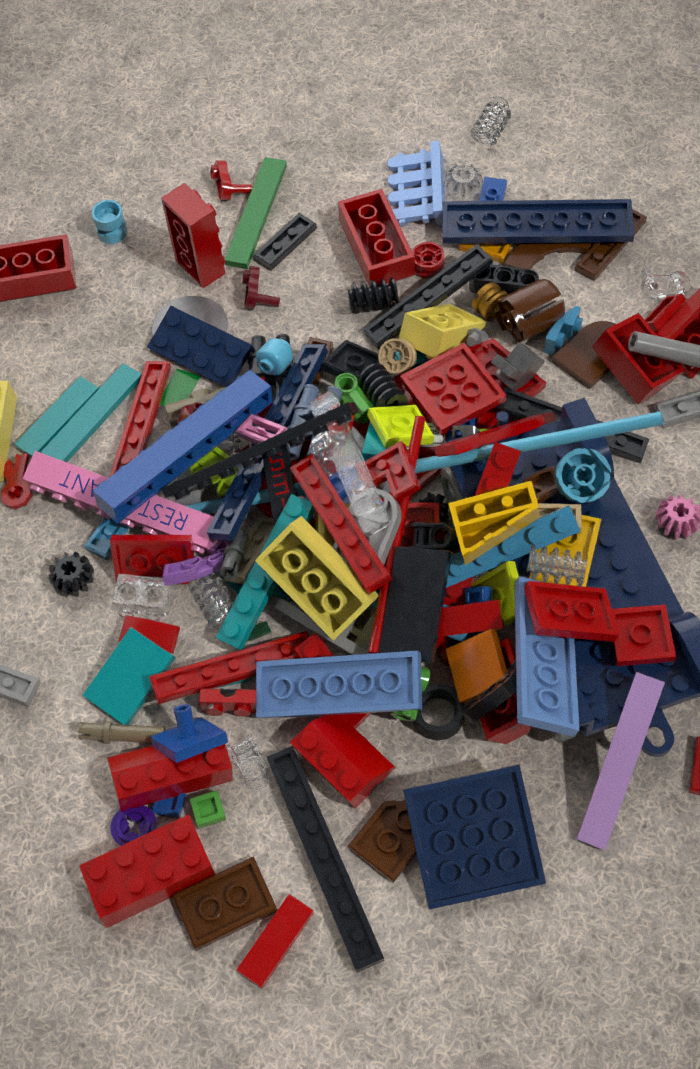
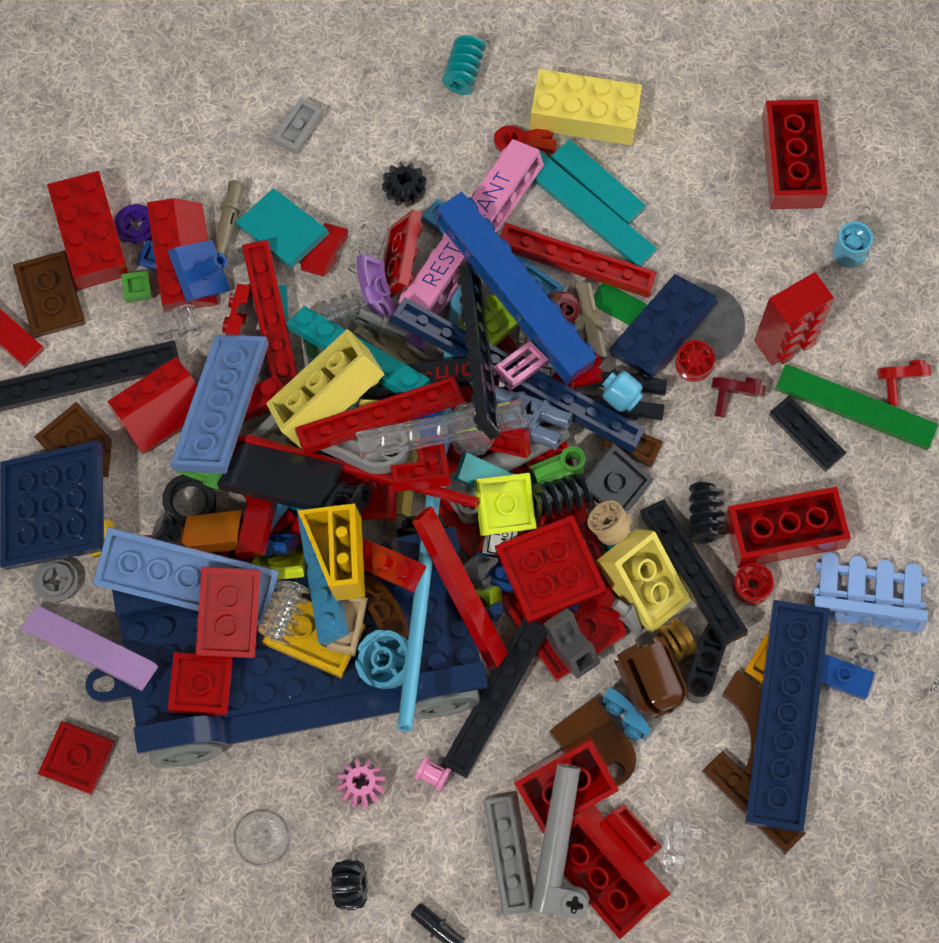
camera: 90 degrees right, 10 degrees up
(232, 320) = (694, 361): none -> red wheel
(555, 815) = (46, 573): none -> light grey gear
(653, 463) = (432, 774): none -> bright pink bush

